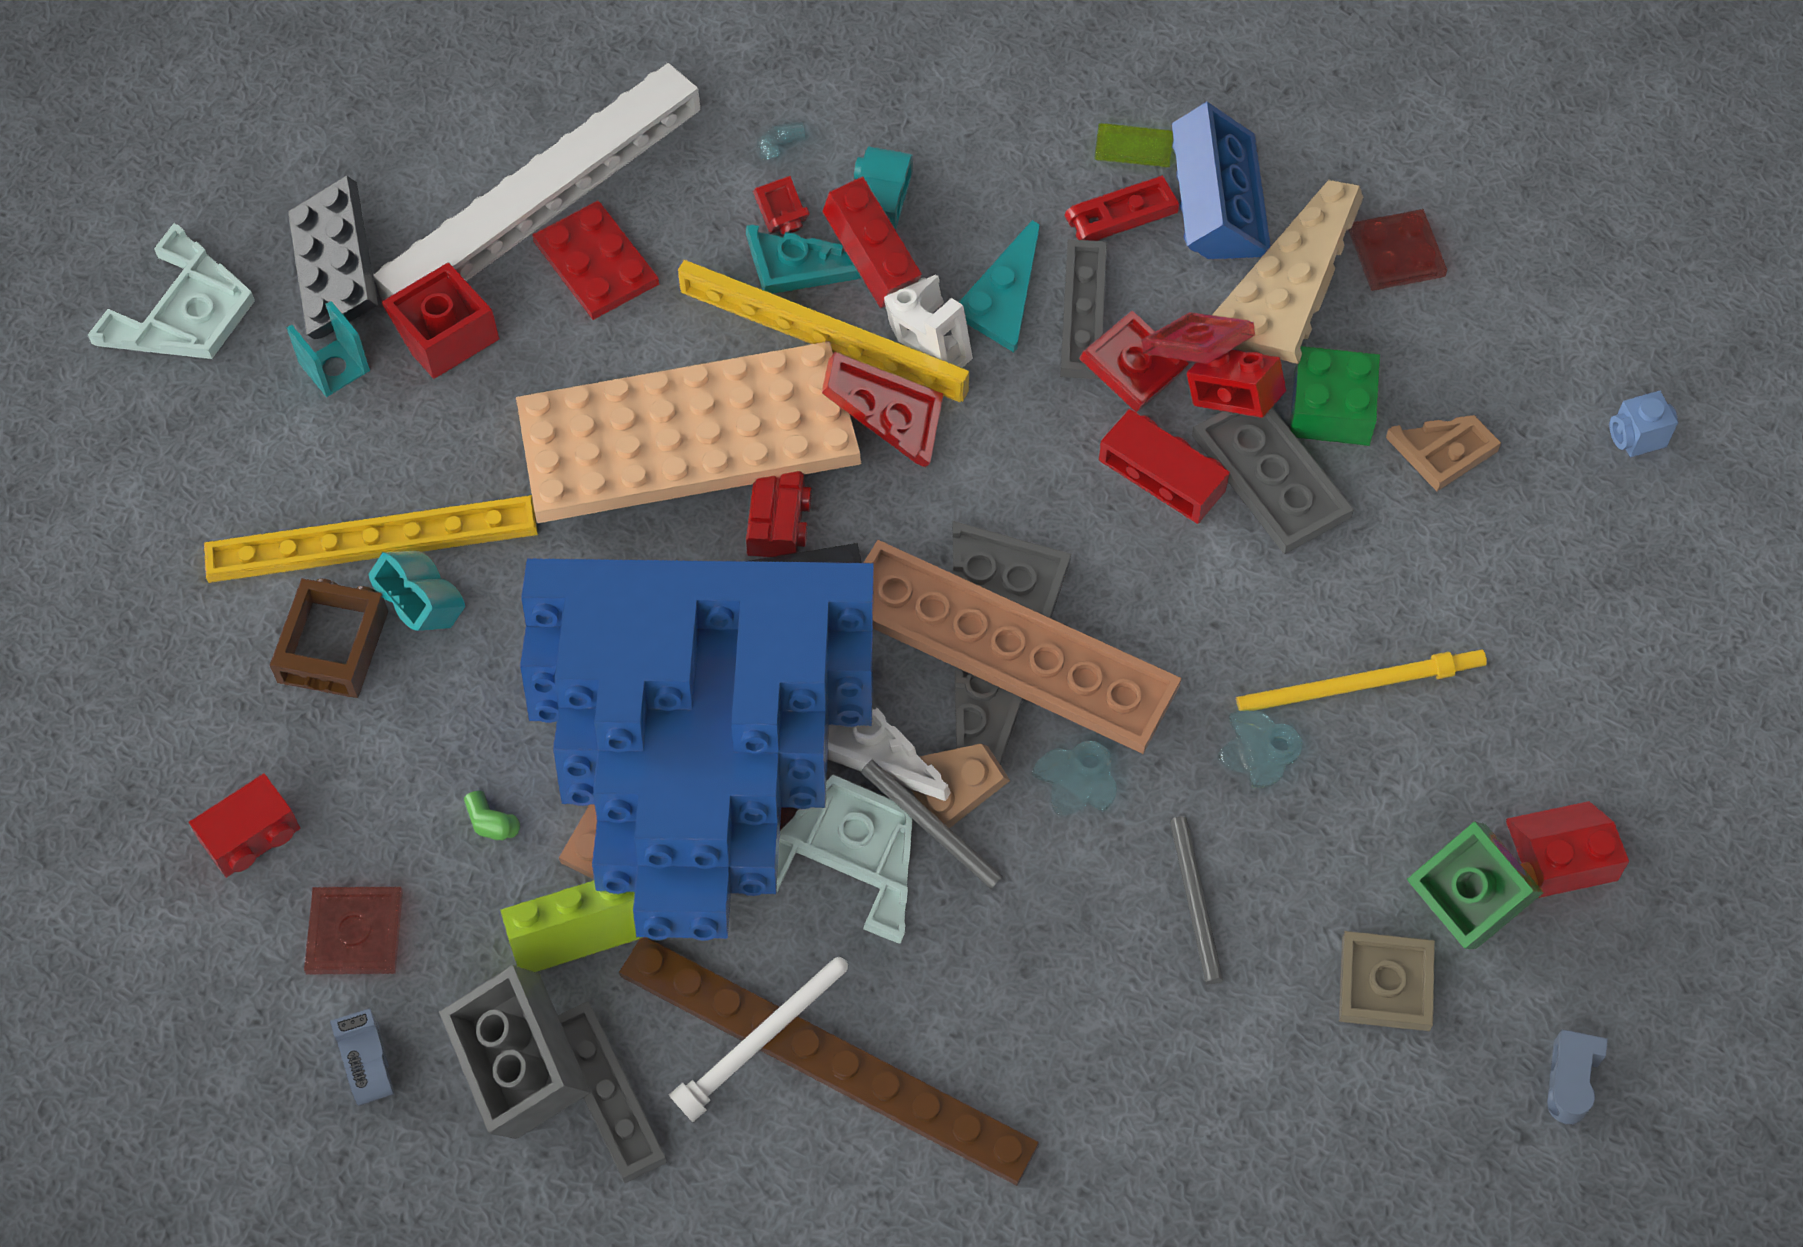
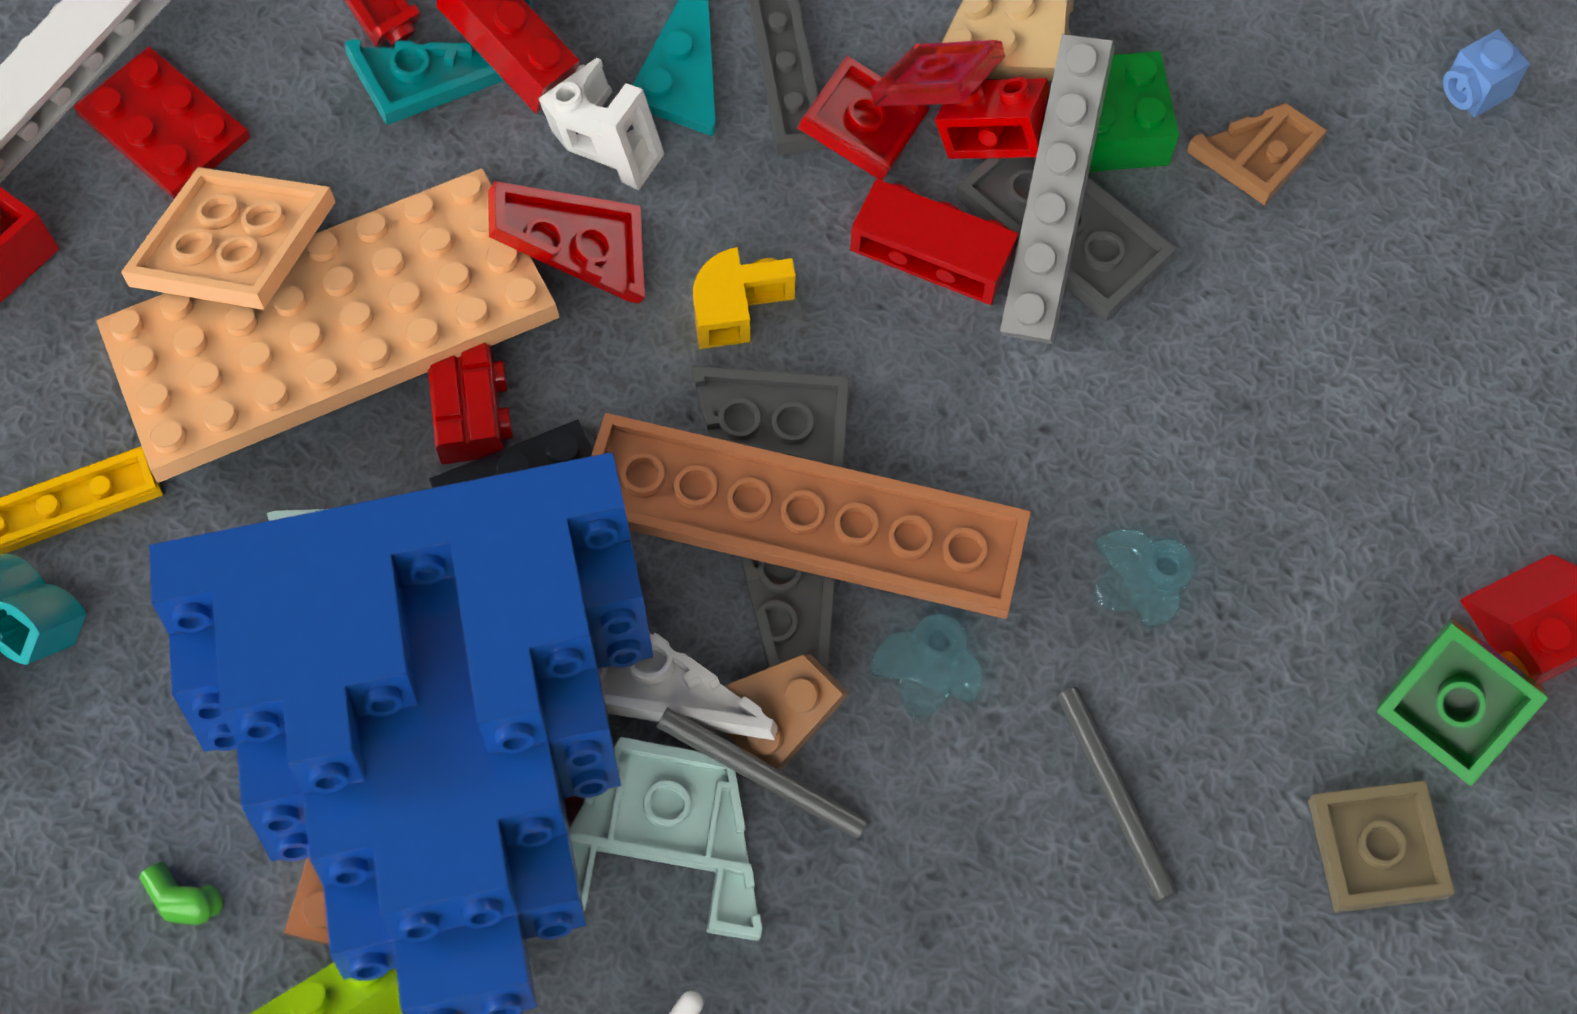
camera: 15 degrees left, 5 degrees up
(628, 355) = (229, 237): none -> light nougat plate
(819, 328) = (466, 153): yellow tile -> none
(993, 469) = (727, 289): none -> yellow brick
(1268, 444) = (1057, 188): none -> light grey plate
(1440, 665) = (1328, 422): yellow bar -> none

